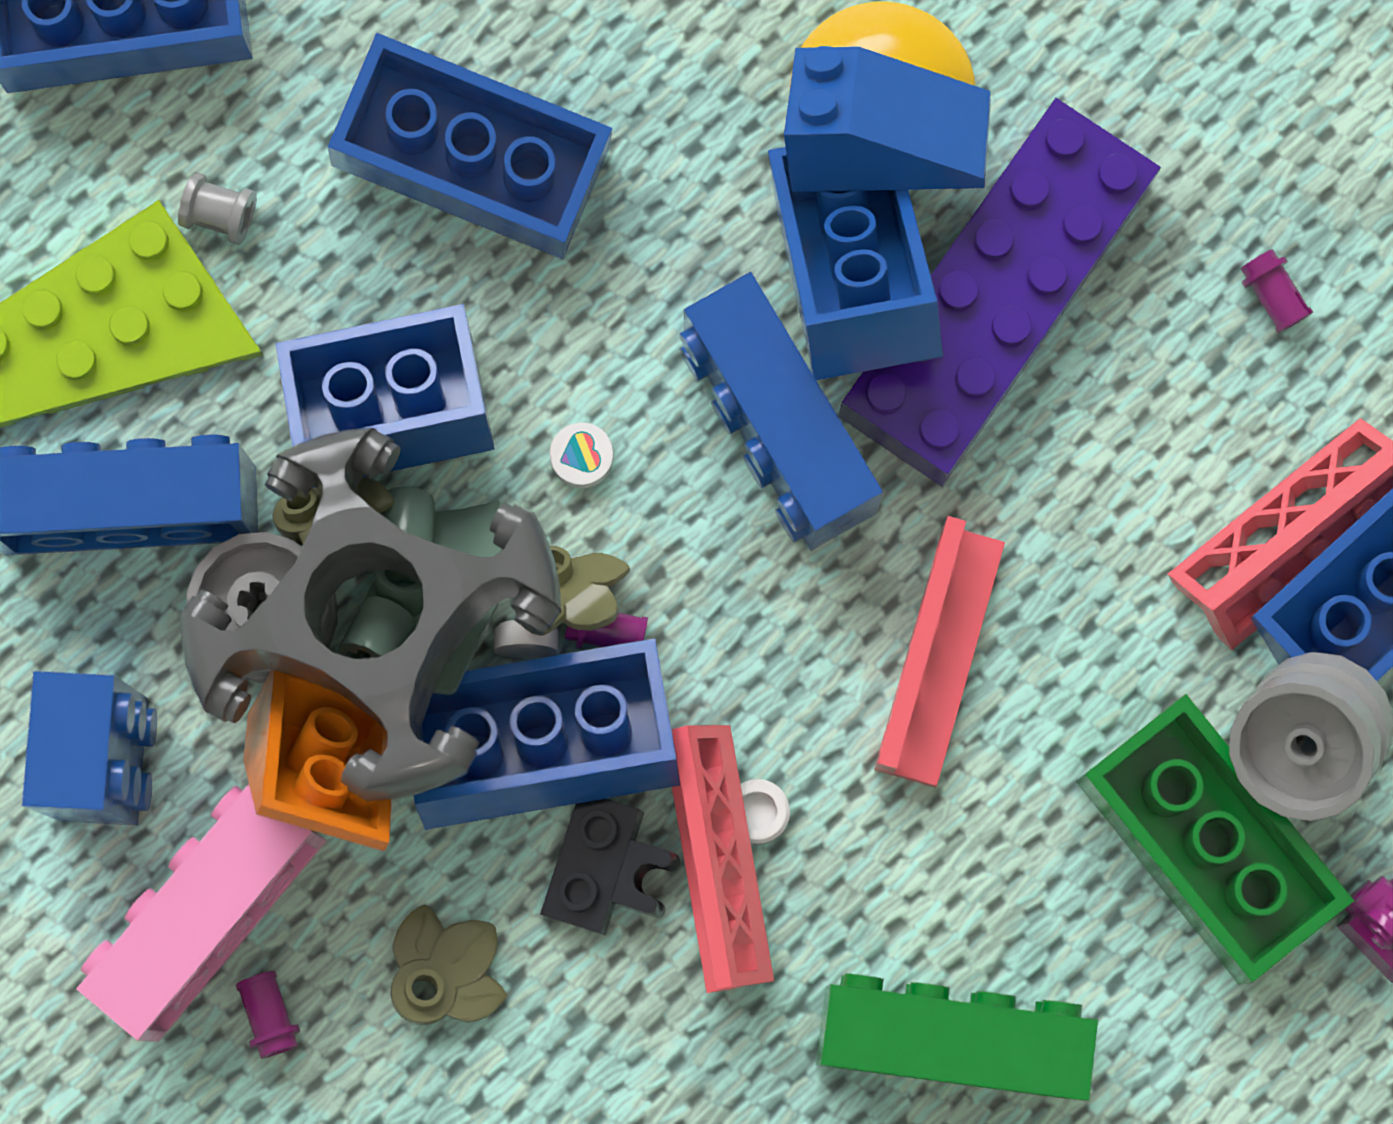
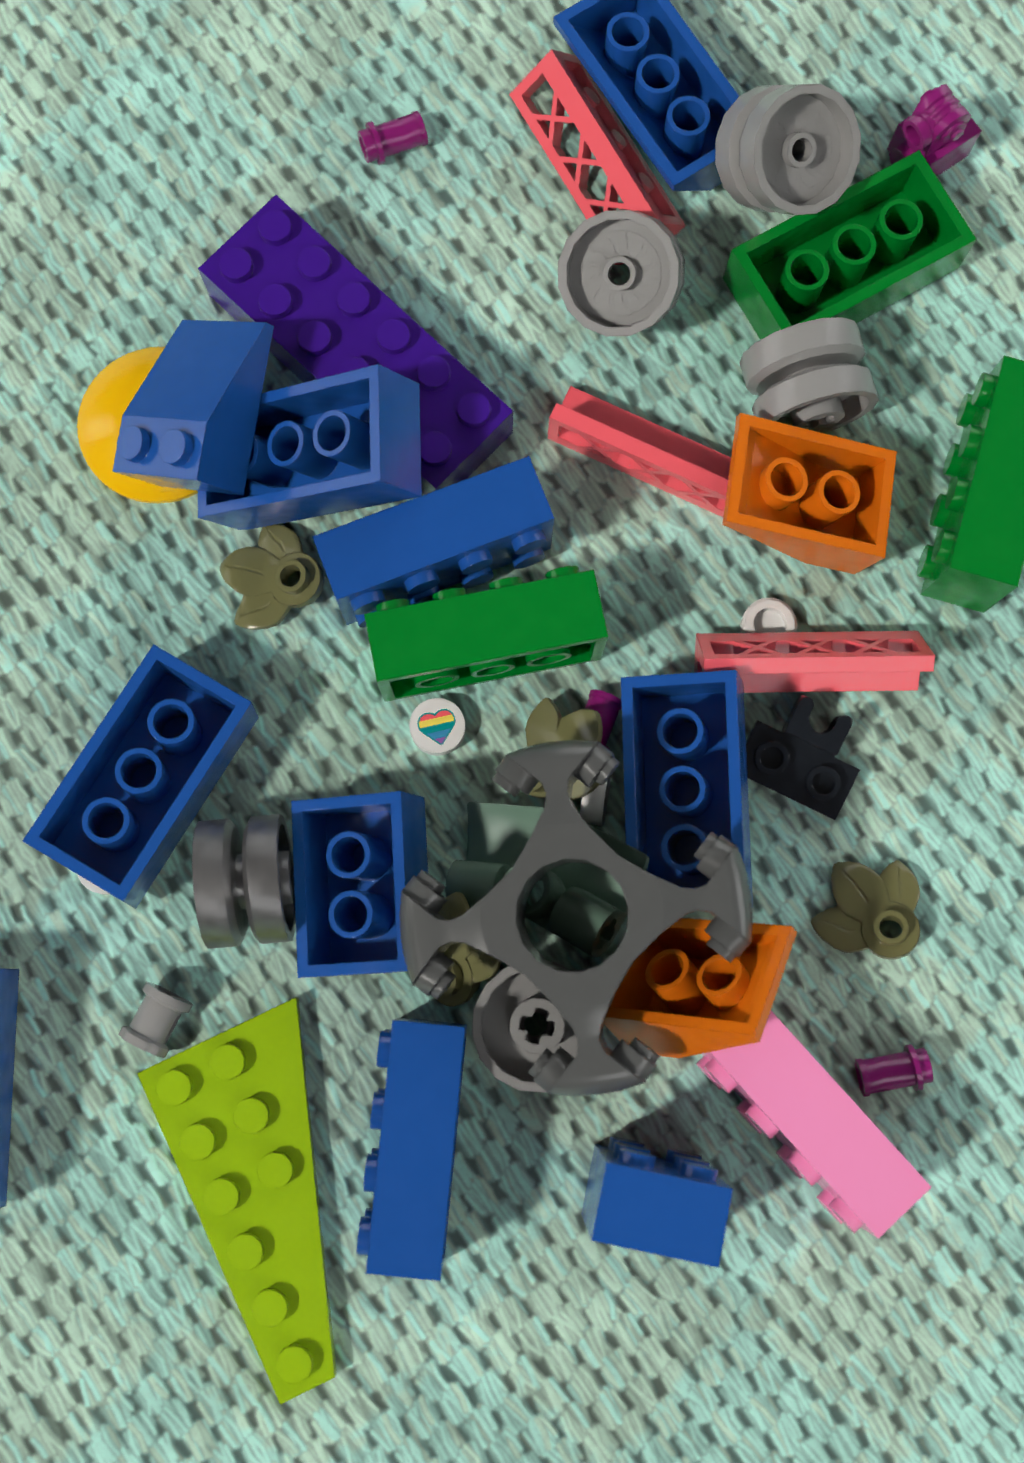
camera: 85 degrees left, 0 degrees up
(370, 267) = (243, 881): none -> flat silver wheel
(682, 485) = (486, 633): none -> green brick
(721, 235) = (263, 578): none -> olive plate
(906, 820) = (810, 493): none -> orange slope
(1046, 808) = (810, 375): none -> light grey wheel
(1139, 573) = (588, 277): none -> light grey wheel

